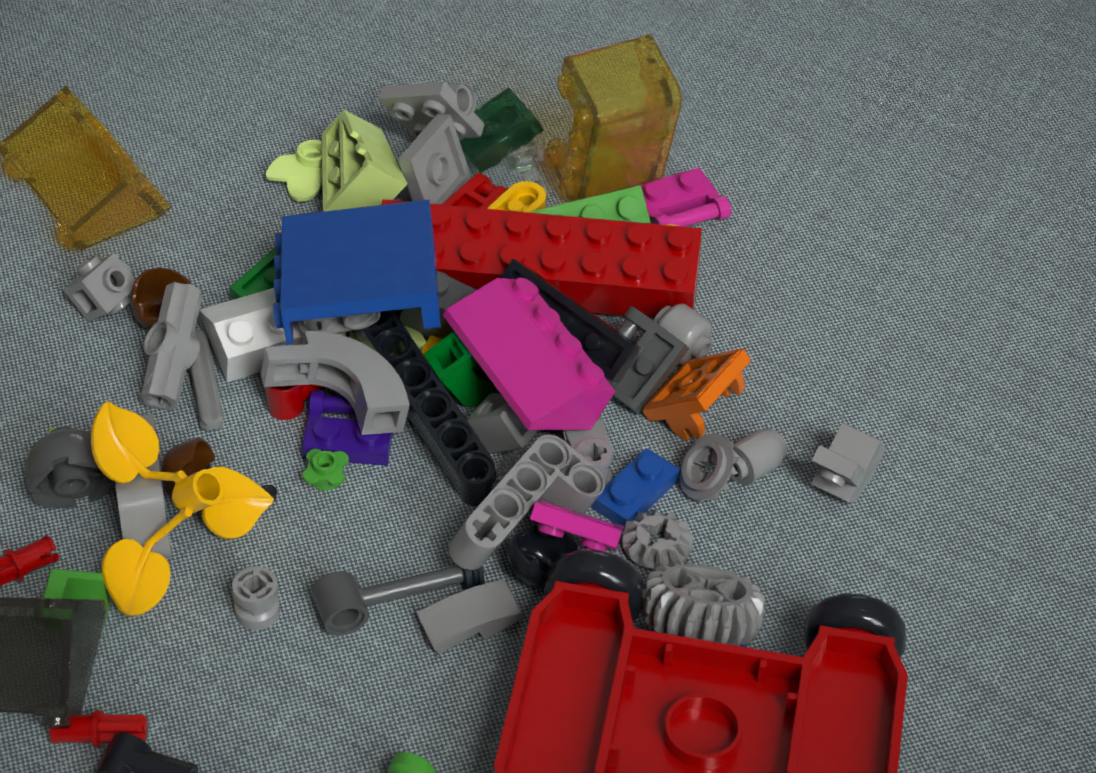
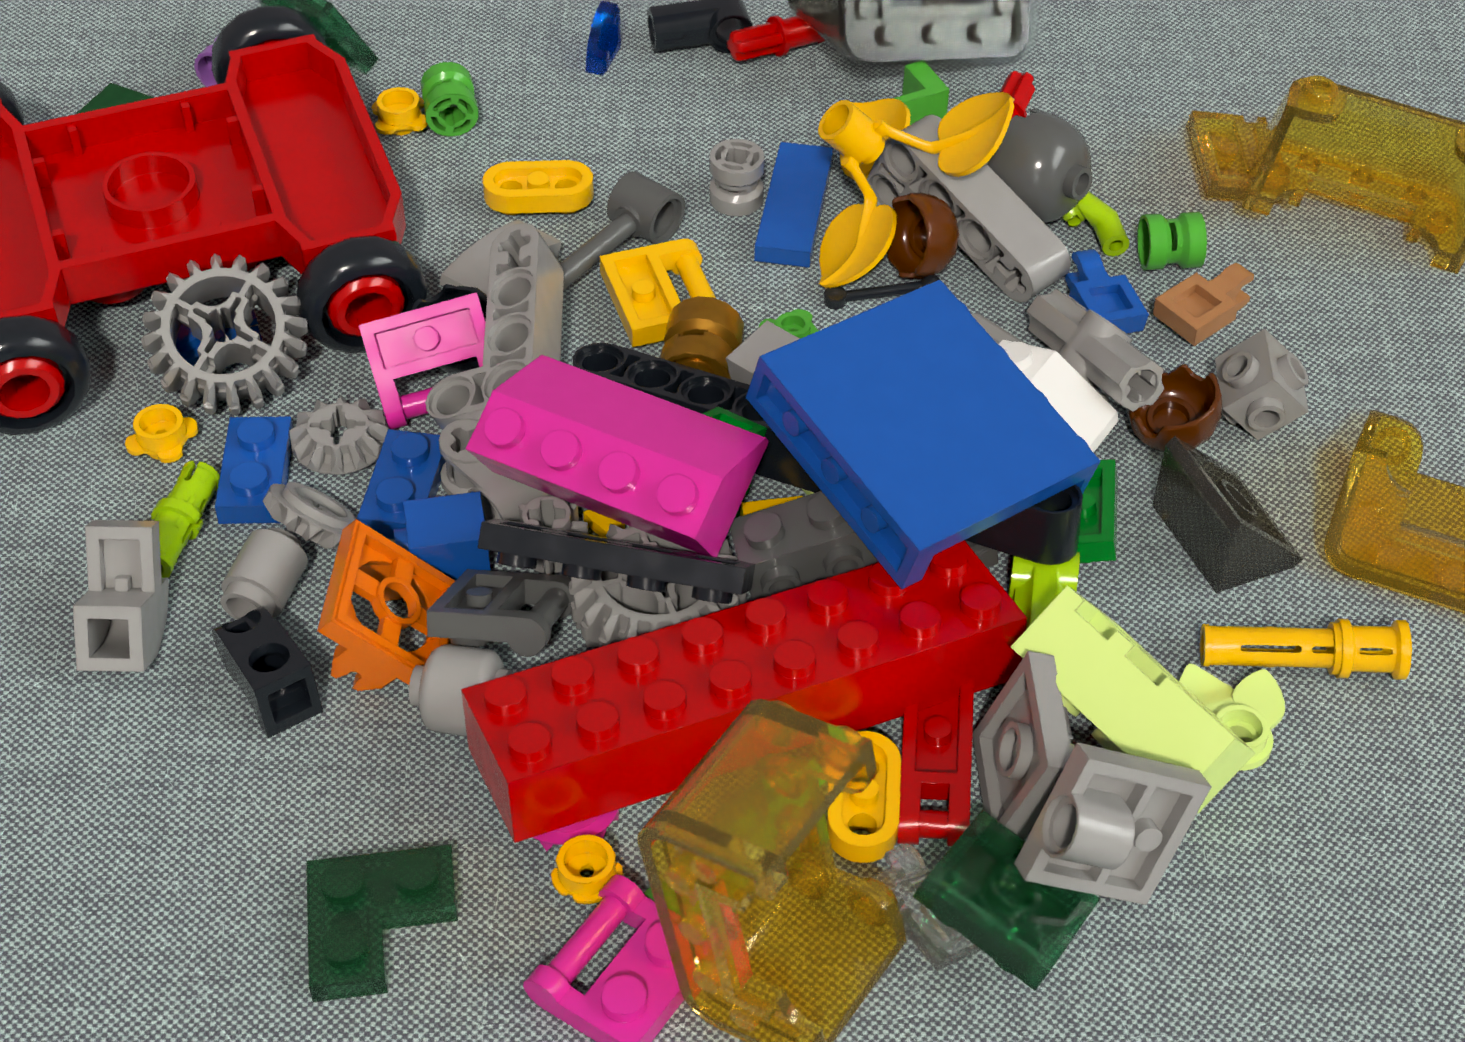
camera: 150 degrees right, 0 degrees up
(27, 406) = (1171, 241): none -> bright green wheel
(63, 363) = (1201, 306): none -> medium nougat plate
(118, 386) = (1105, 295): none -> blue plate
(205, 241) = (1218, 520): none -> clear smoke slope
(210, 585) = (794, 205): none -> blue tile
(221, 166) = (1341, 641): none -> yellow pin
(393, 540) = (643, 289): none -> yellow plate
(400, 668) = (538, 187): none -> yellow plate
(401, 465) = (703, 334): none -> pearl gold wheel
(638, 423) = (445, 532): none -> blue brick
(724, 537) = (253, 460): none -> blue plate
(779, 583) = (160, 433): none -> yellow plate
(780, 399) = (268, 670): none -> black leg
(782, 284) = (361, 897): none -> clear green plate
(787, 524) = (182, 510): none -> lime pin

